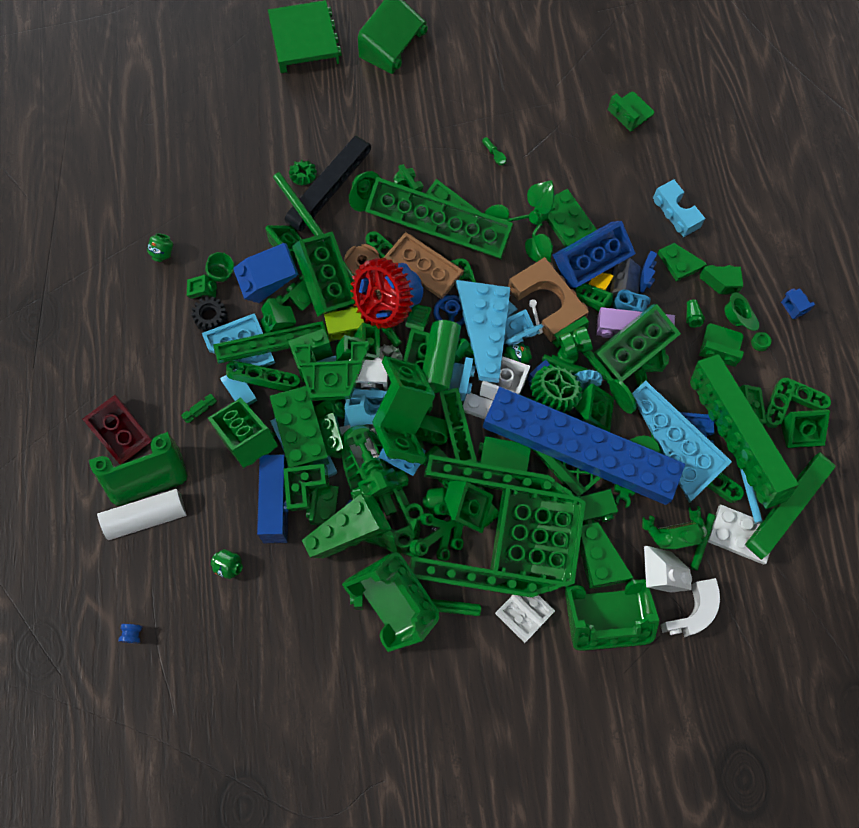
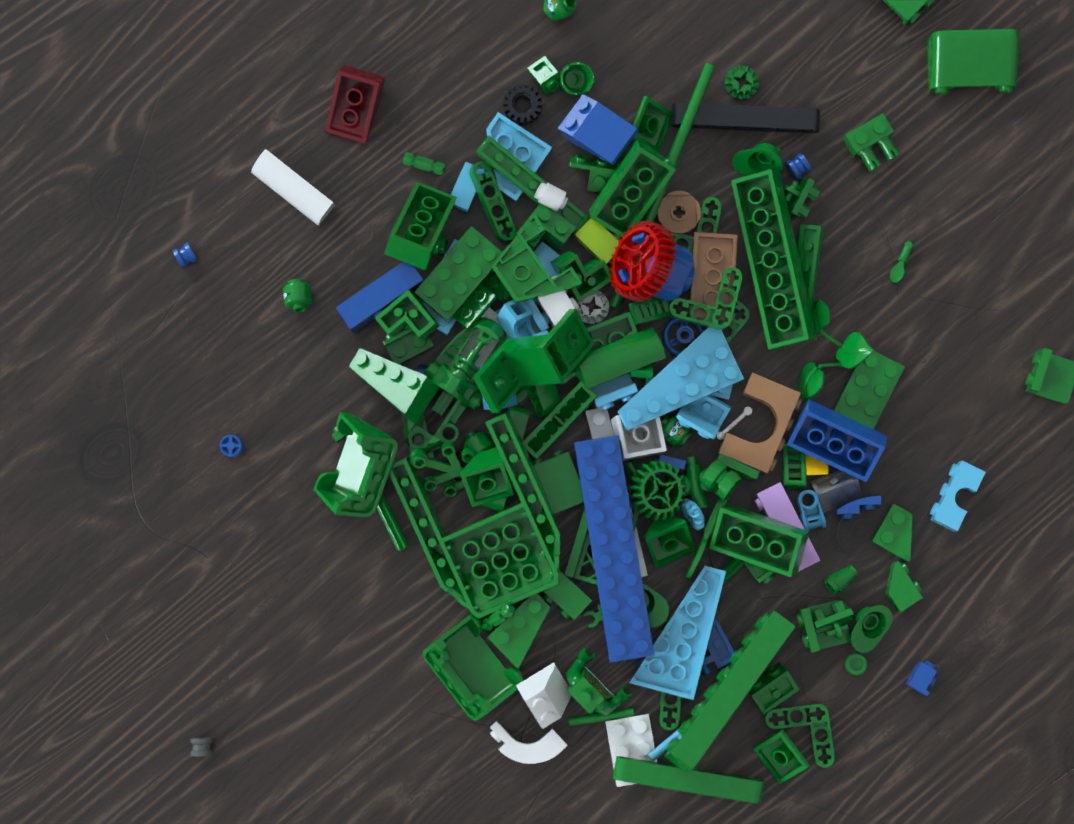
camera: 55 degrees right, 15 degrees up
(143, 475) = (341, 178): green windscreen -> none
(276, 316) = (560, 171): green brick -> none
(289, 331) = (551, 196): none -> white brick
(304, 694) = (231, 442): none -> blue wheel
(385, 170) = (798, 166): none -> blue wheel
(396, 119) = (868, 135): none -> green brick
(449, 274) = (712, 312): none -> green beam
(524, 614) = (424, 592): white slope -> none
(583, 567) = (498, 617): none -> green axle
(722, 325) = (835, 623): none -> green hips

